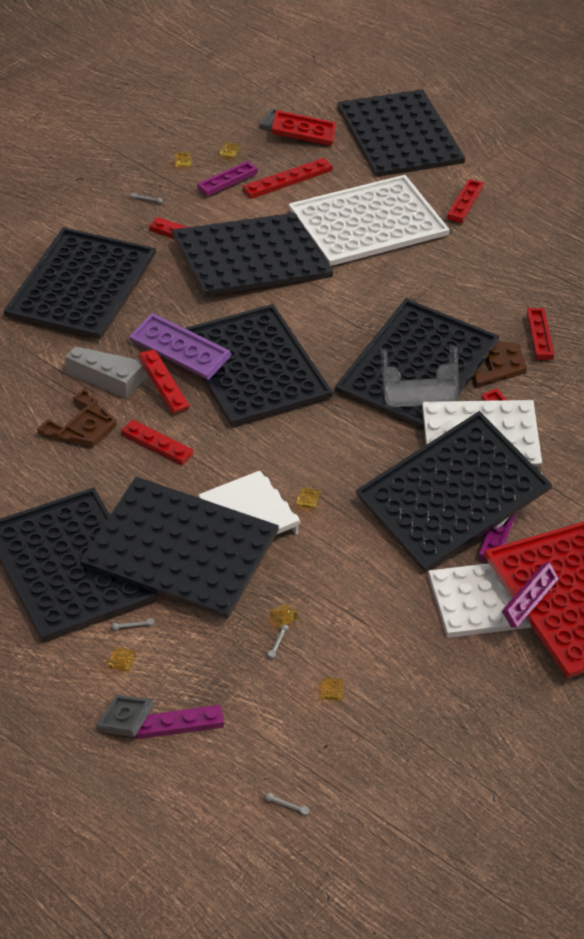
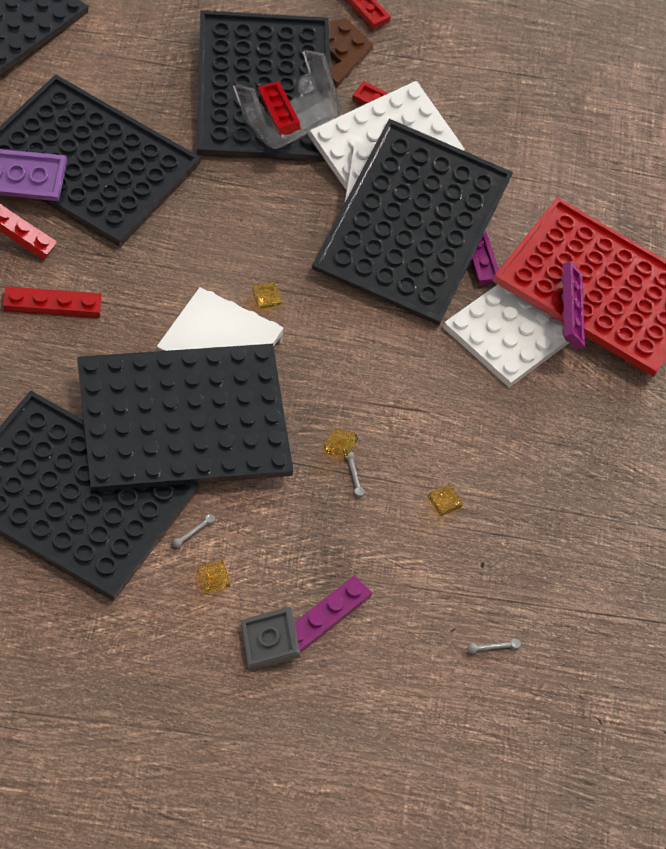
camera: 40 degrees left, 10 degrees up
(406, 377) = (279, 108): none -> red plate

